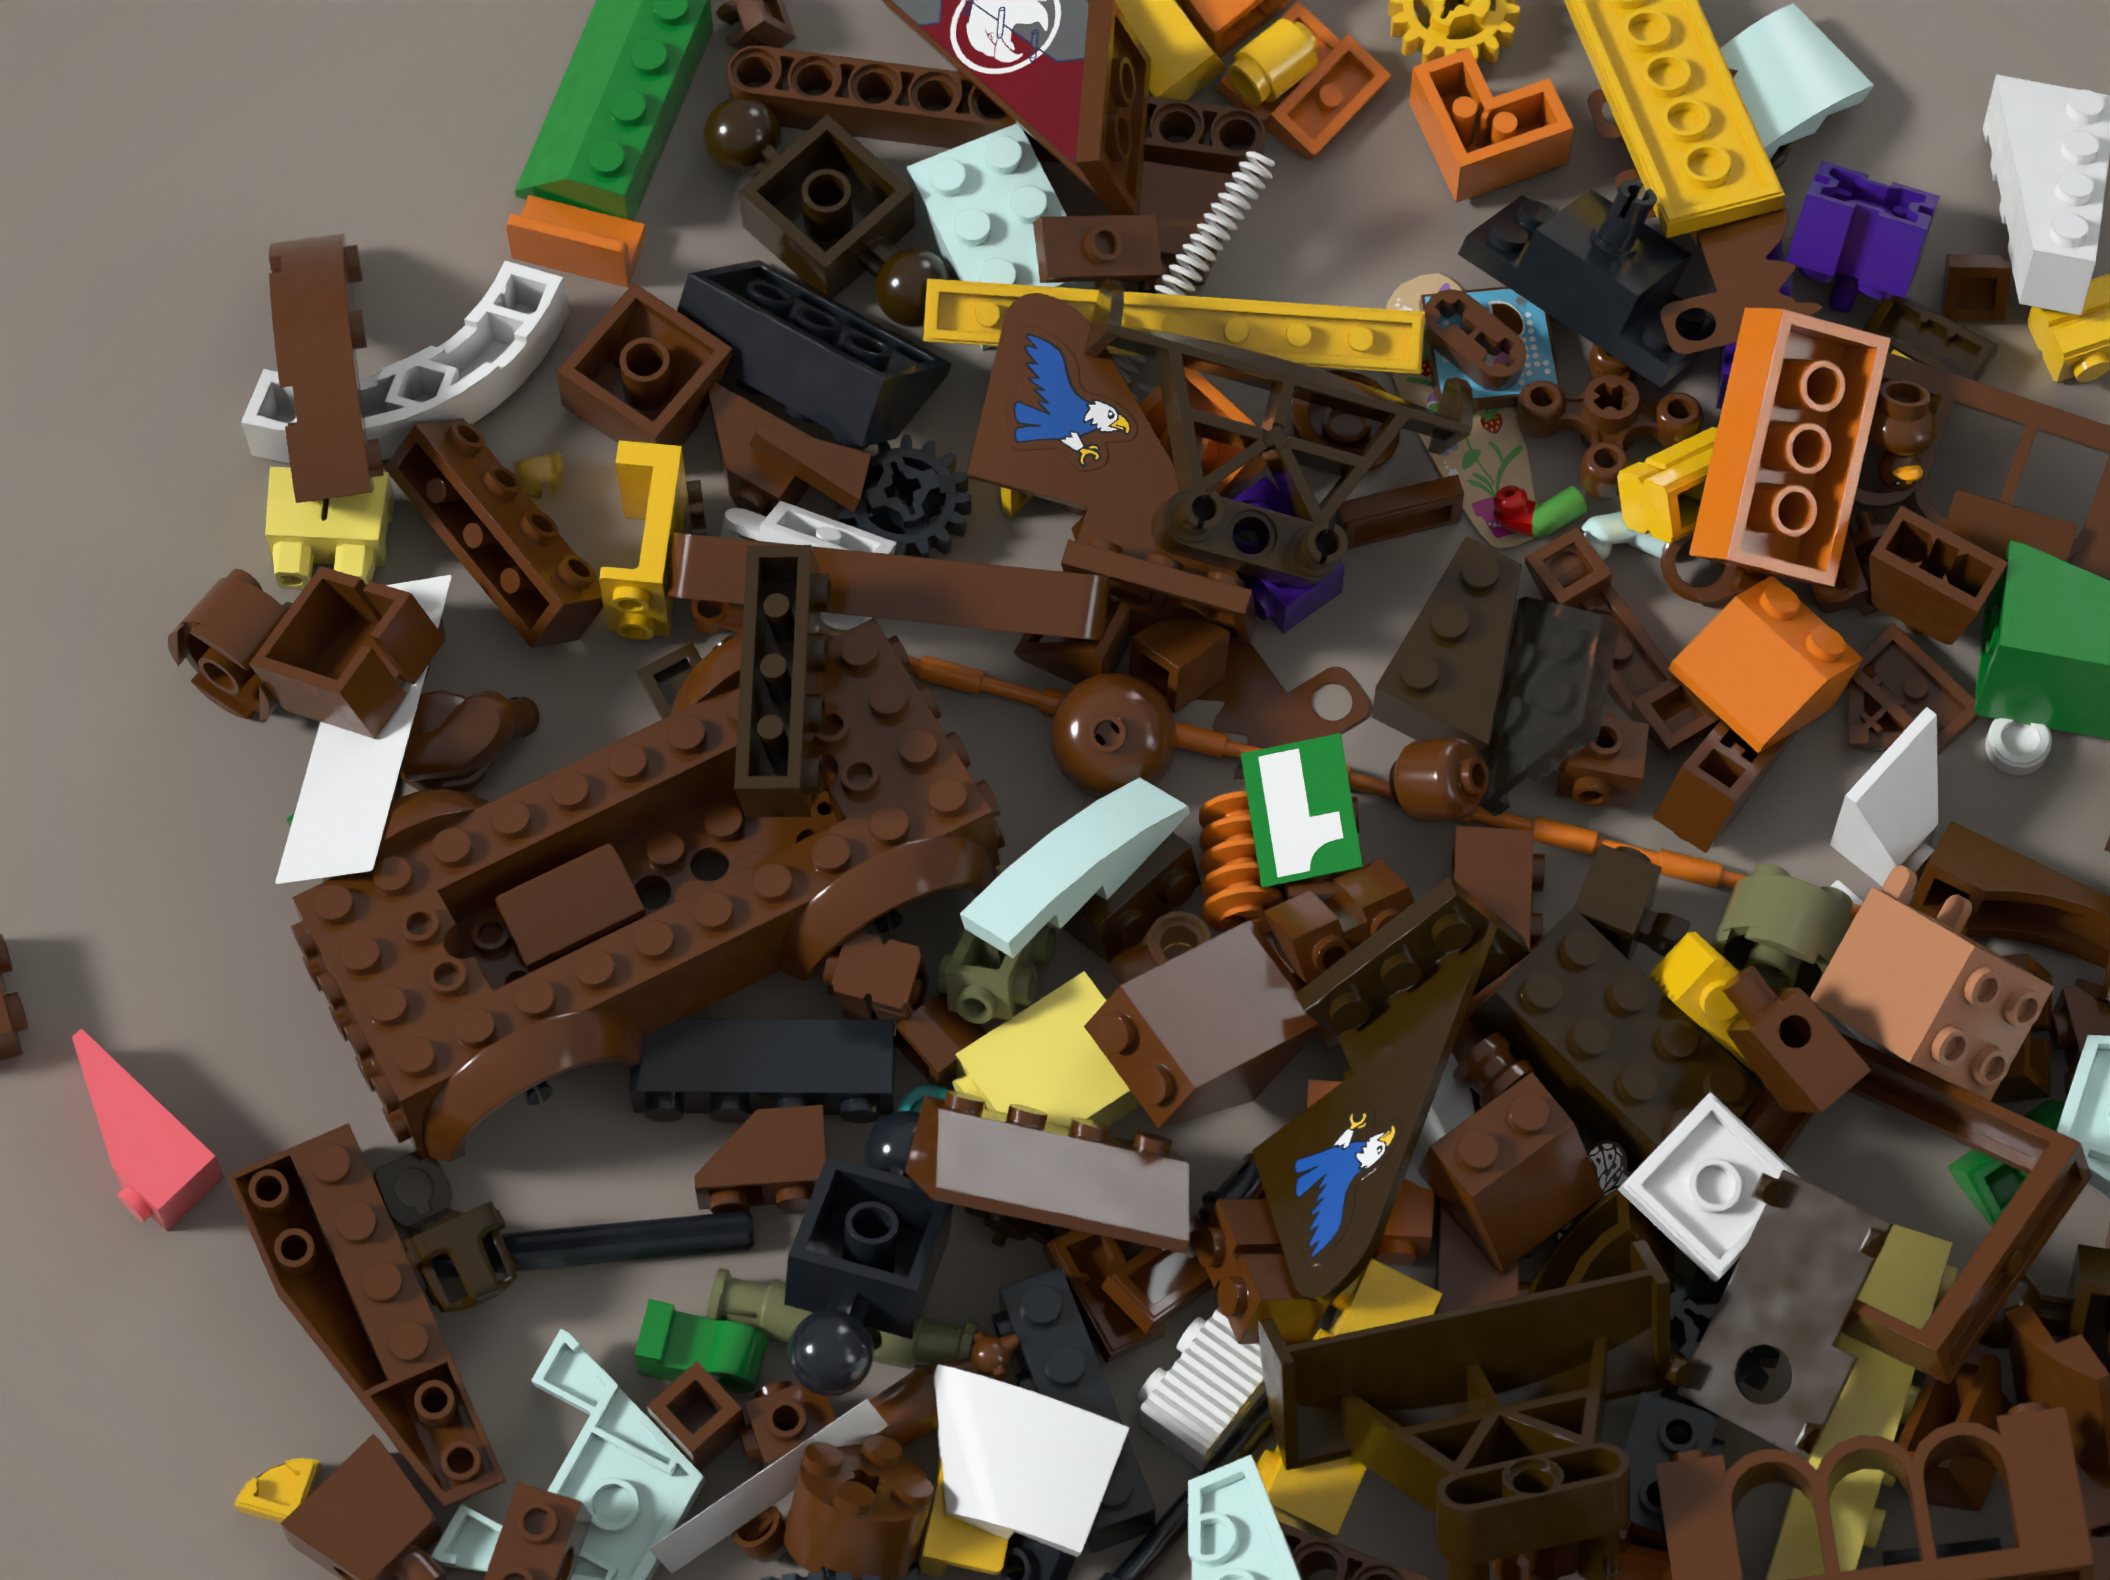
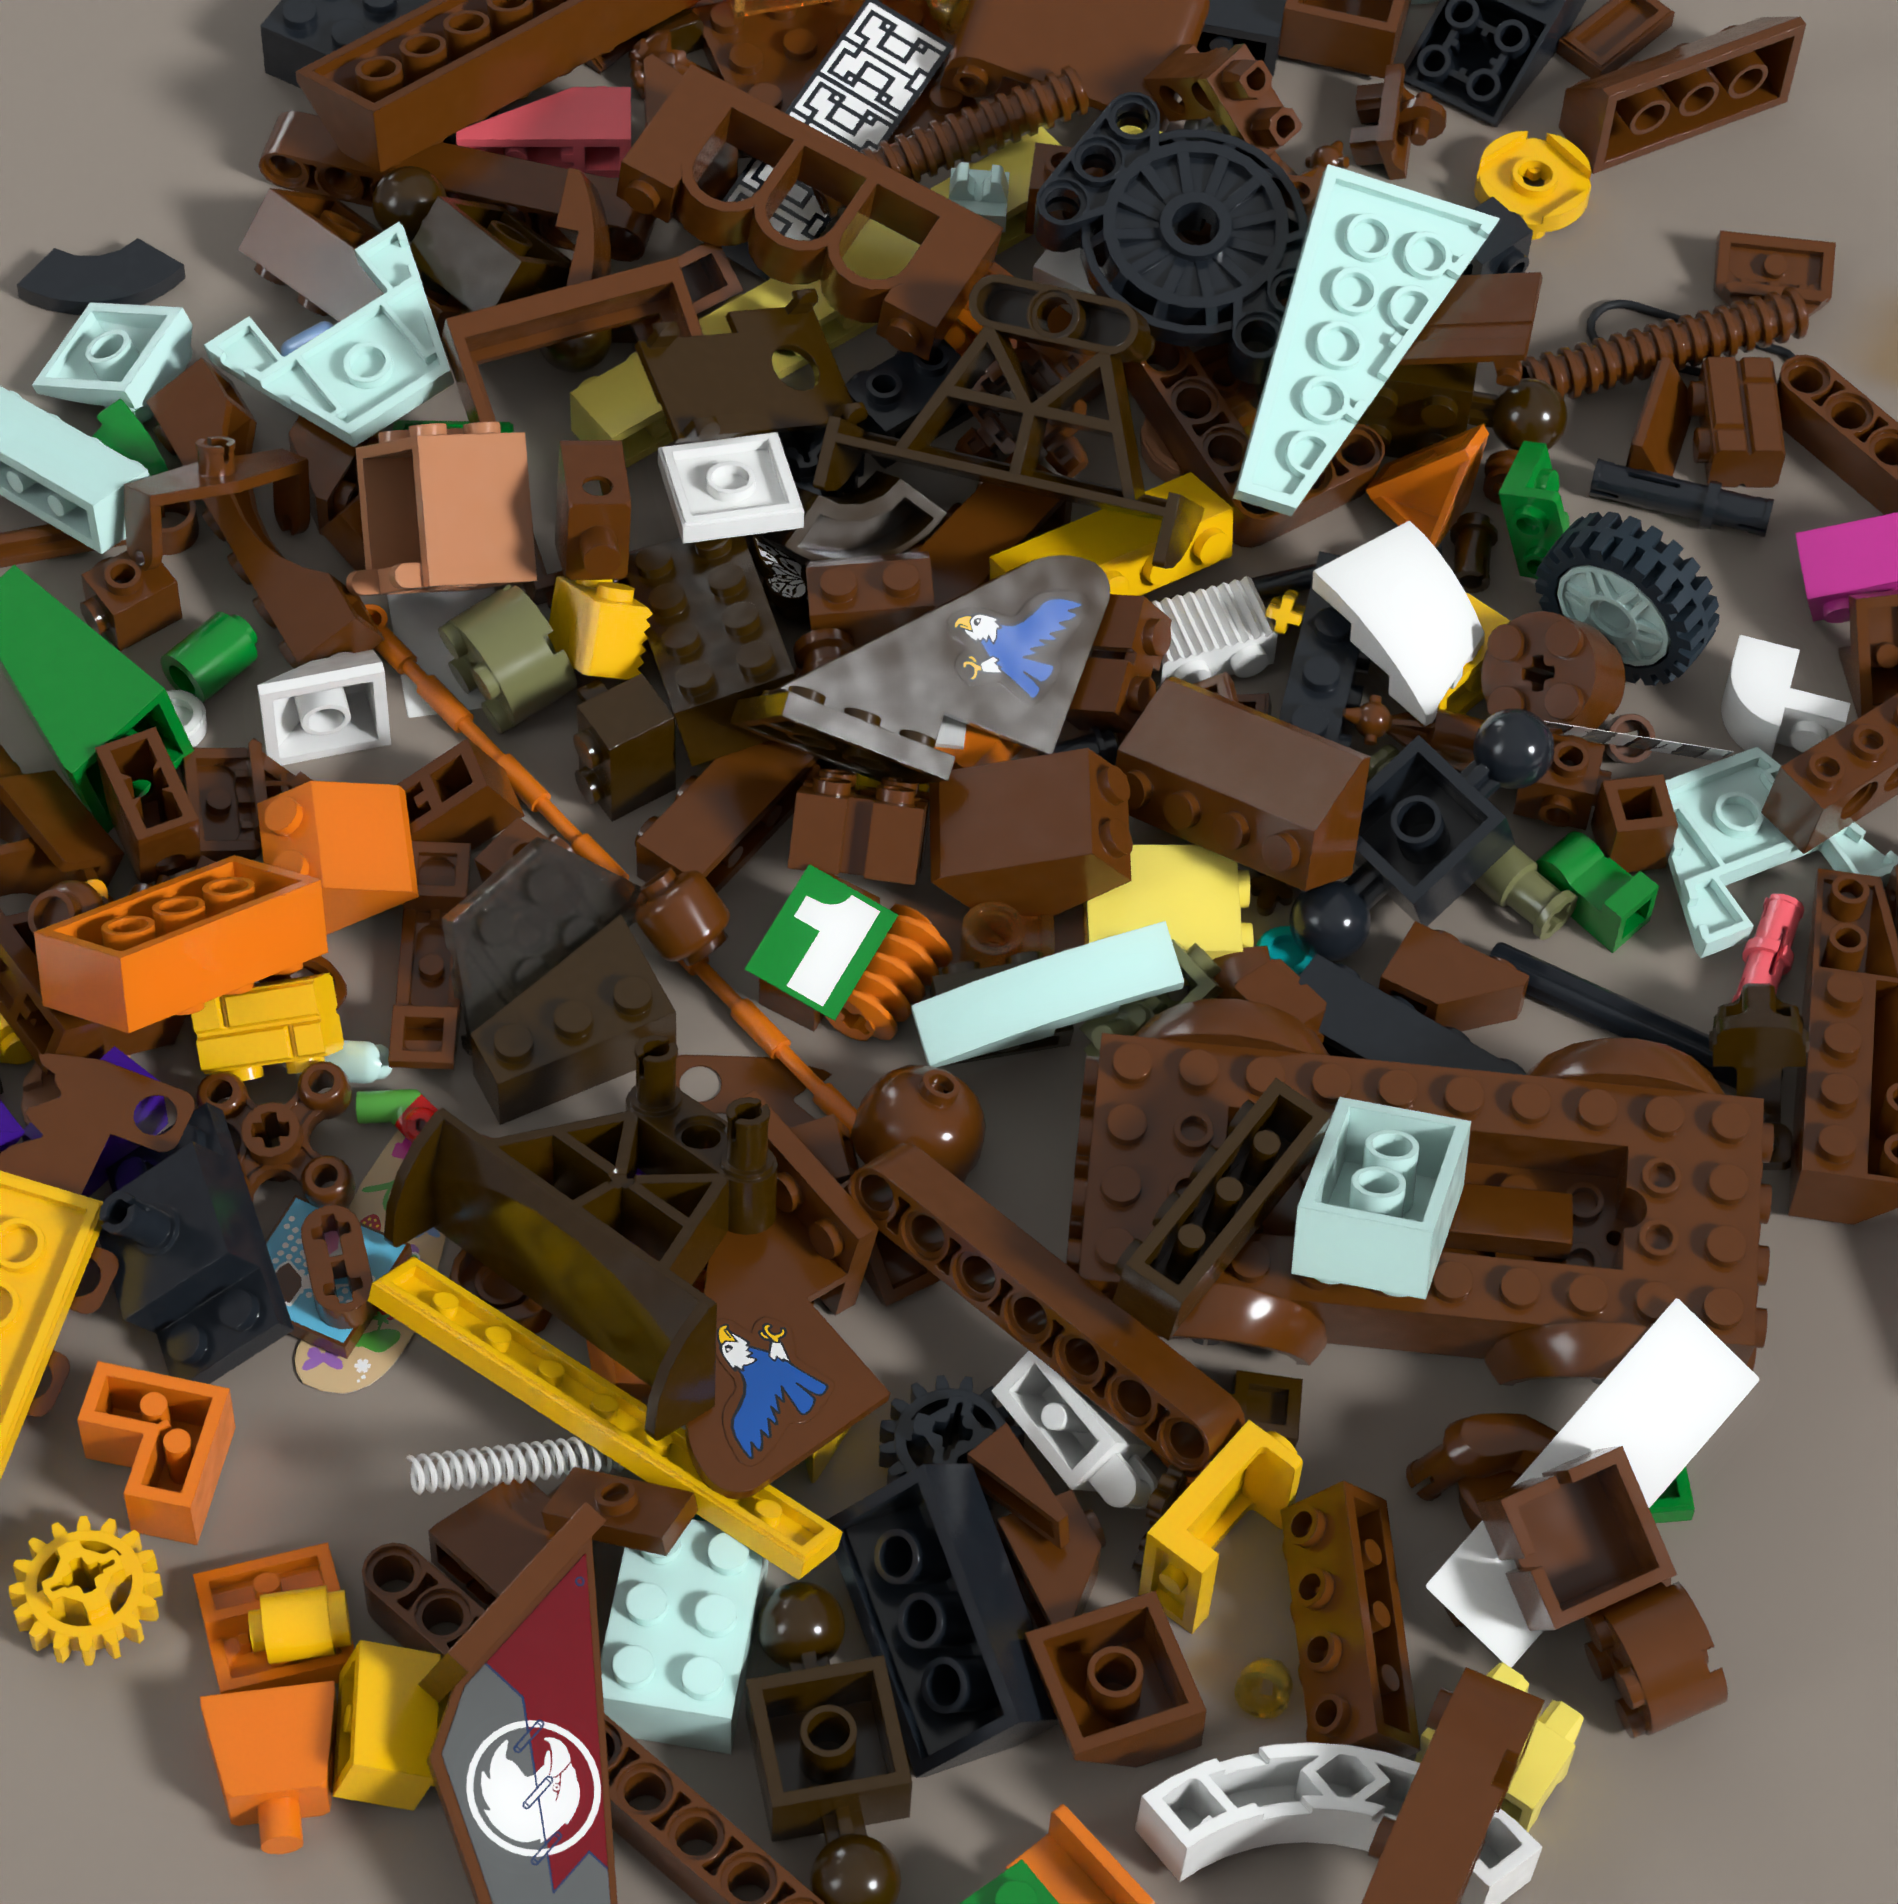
camera: 150 degrees left, 10 degrees down
(507, 1382) = (1770, 951): none -> coral pin
(661, 786) = (1381, 1198): none -> light aqua brick
(1149, 1440) = (1285, 611): none -> yellow axle
(2035, 801) = (211, 655): none -> green brick

